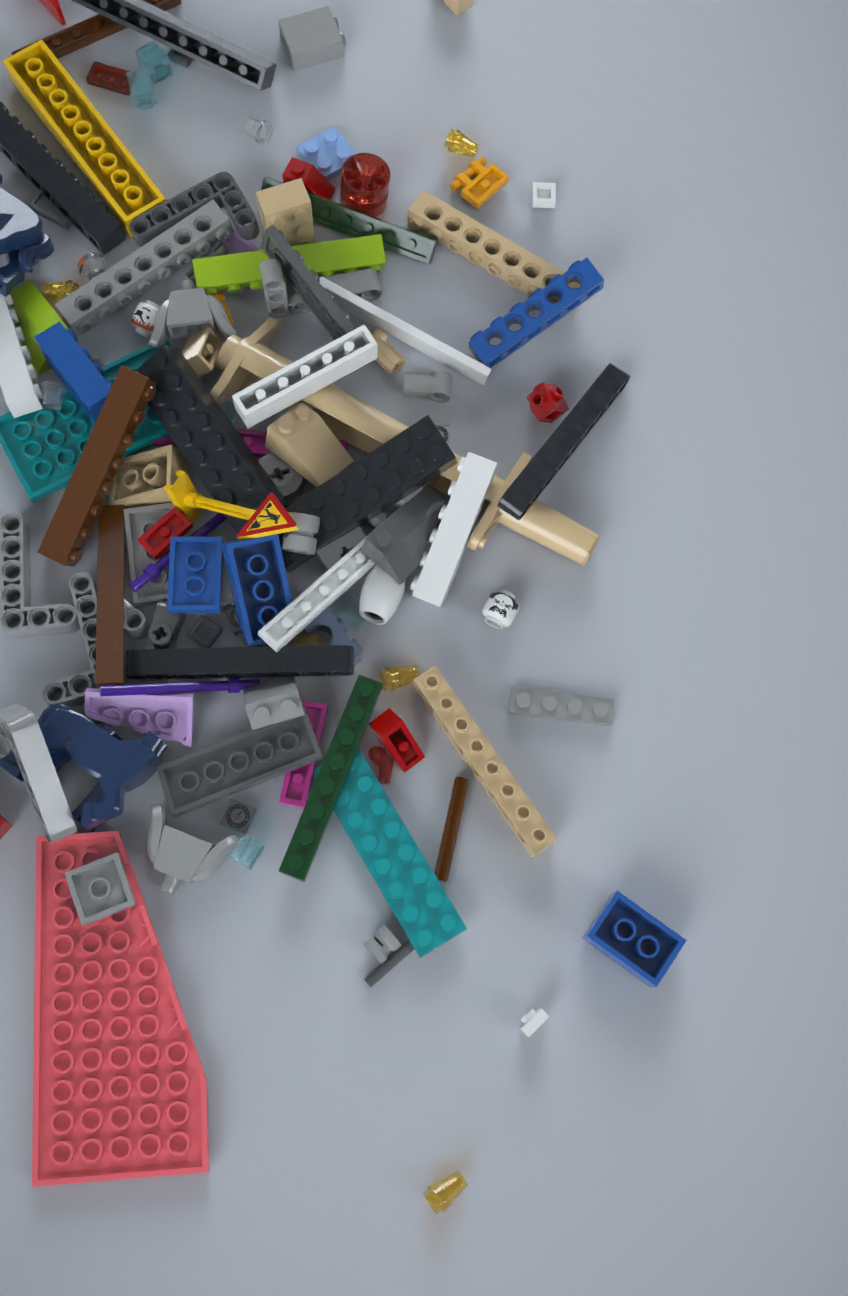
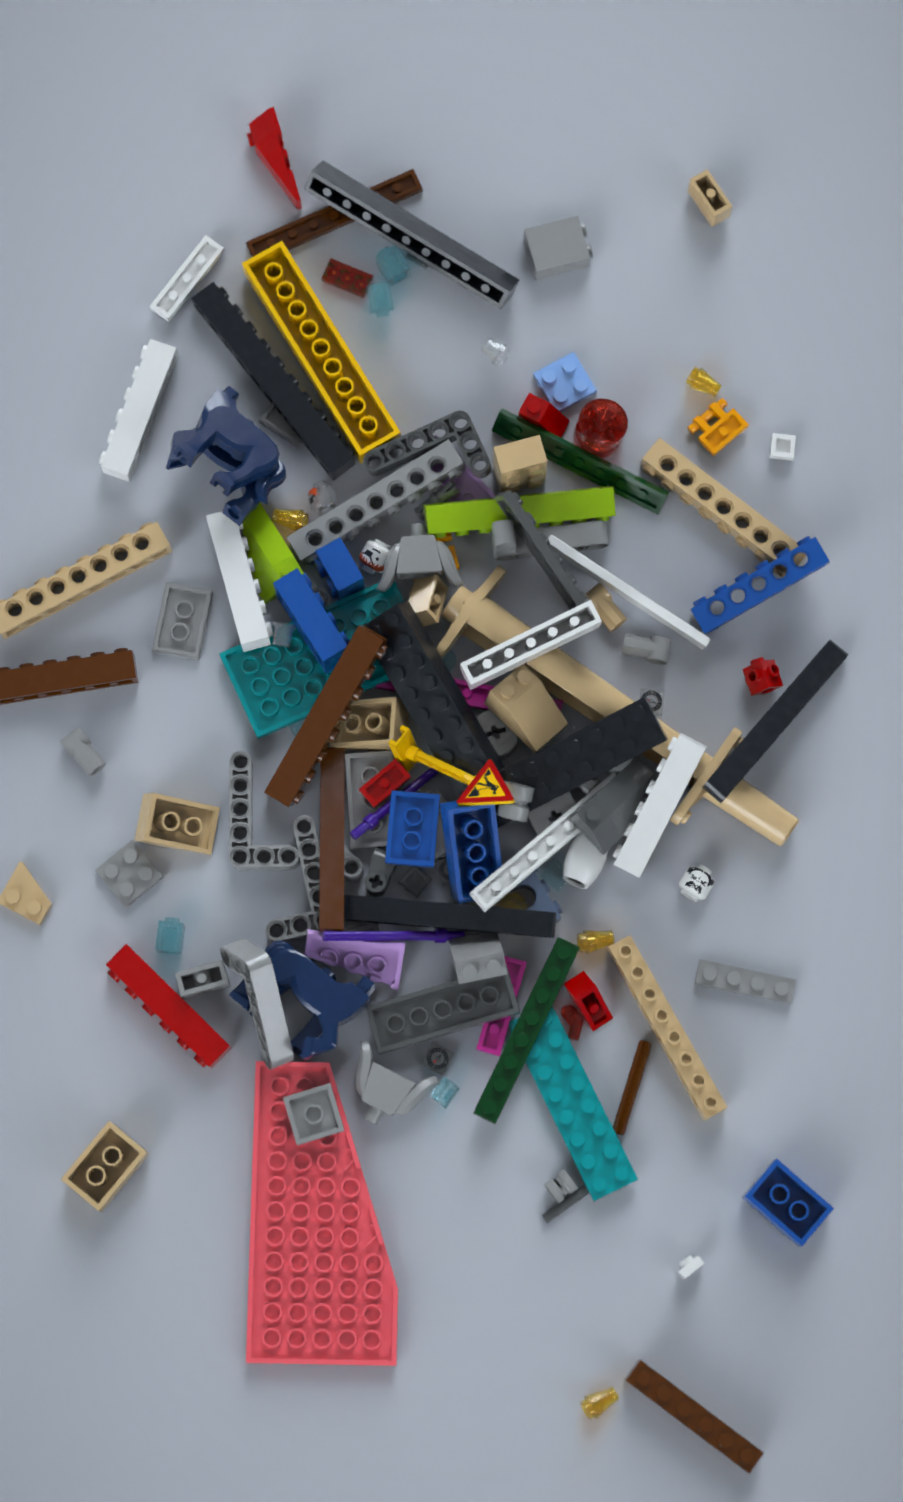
camera: 10 degrees right, 5 degrees up
(108, 329) = (339, 569): none -> blue brick
(556, 1198) = (694, 1416): none -> reddish brown brick

